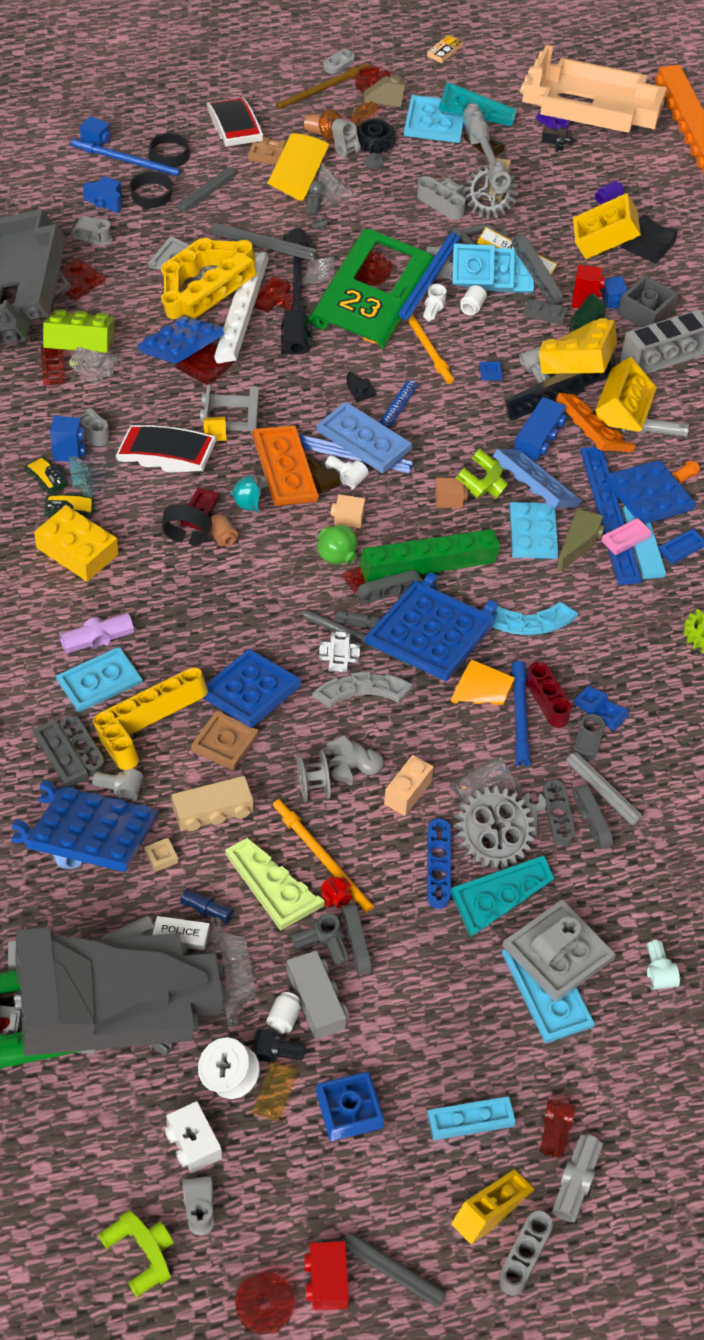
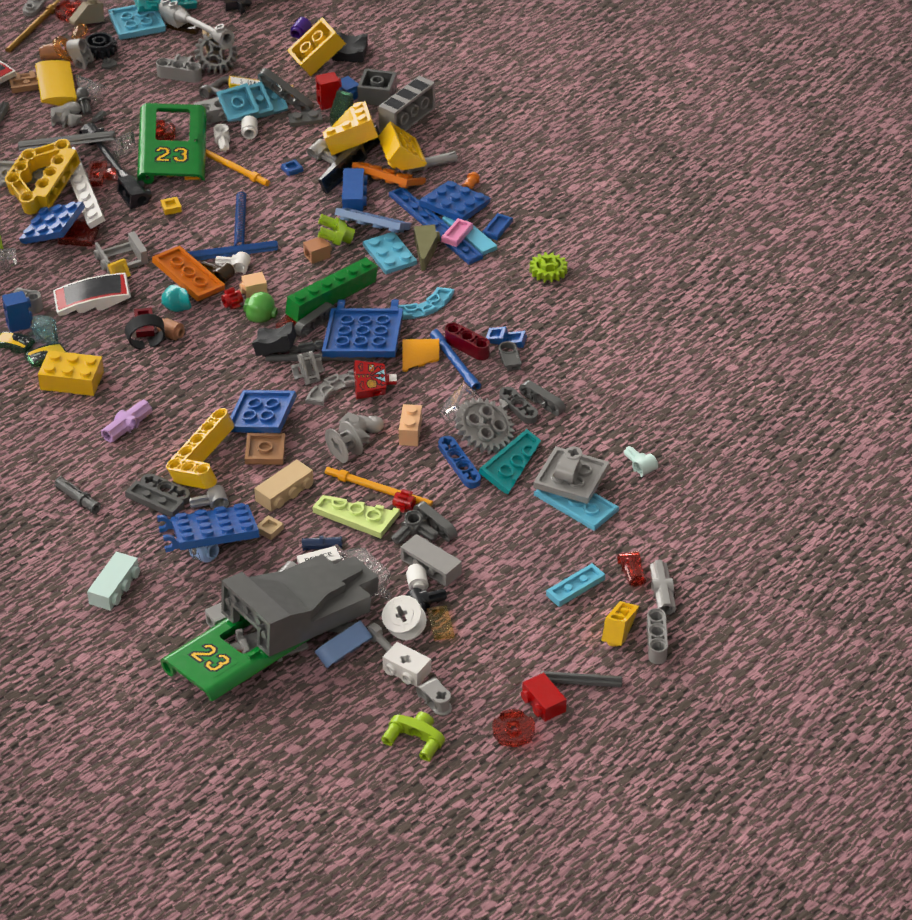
camera: 25 degrees left, 10 degrees down
(99, 679) = (148, 448): medium azure tile -> none
(137, 1070) = (343, 643): none -> medium blue beam
(187, 1080) = (376, 632): none -> light grey bar
(285, 207) = (66, 114): none -> light grey animal
(313, 519) = (232, 298): none -> red gear
(323, 596) = (274, 340): none -> black brick
(324, 367) = (171, 206): none -> yellow plate
(359, 387) = (204, 210): black plate -> none
(361, 1095) = (495, 608): blue brick -> none
(364, 437) = (233, 235): medium blue plate -> none
(401, 700) = (371, 379): none -> red torso
(429, 276) = (209, 120): blue axle -> none
(603, 788) = (539, 380): light grey axle -> none

